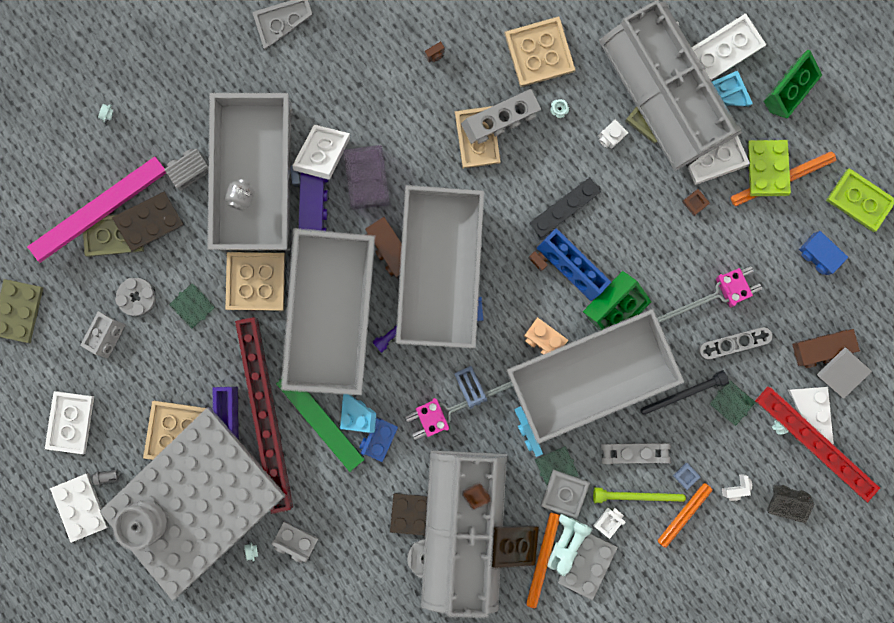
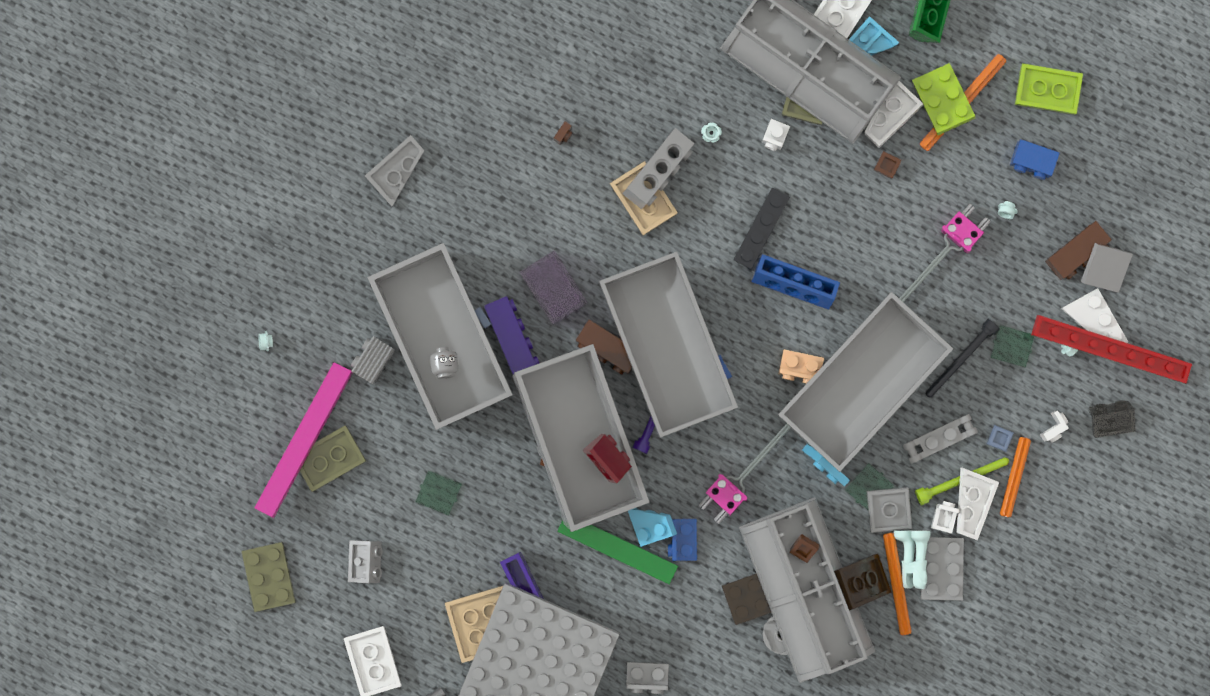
camera: 20 degrees left, 0 degrees up
(141, 306) = (371, 500): light grey plate -> none
(147, 221) = (358, 429): dark brown plate -> none
(255, 281) = (490, 440): tan plate -> none
(263, 408) = (556, 558): dark red brick -> none
(321, 152) = (498, 283): white plate -> none
(342, 341) = (608, 458): none -> dark red slope
(477, 401) = (762, 458): sand blue tile -> none
(538, 260) = (760, 293): reddish brown plate -> none
(539, 51) = (666, 85): tan plate -> none
(617, 303) = (855, 299): green slope -> none
(640, 521) = (974, 502): none -> white wing
(734, 342) = (988, 286): light grey beam -> none
(780, 286) = (1007, 210): none -> light aqua plate

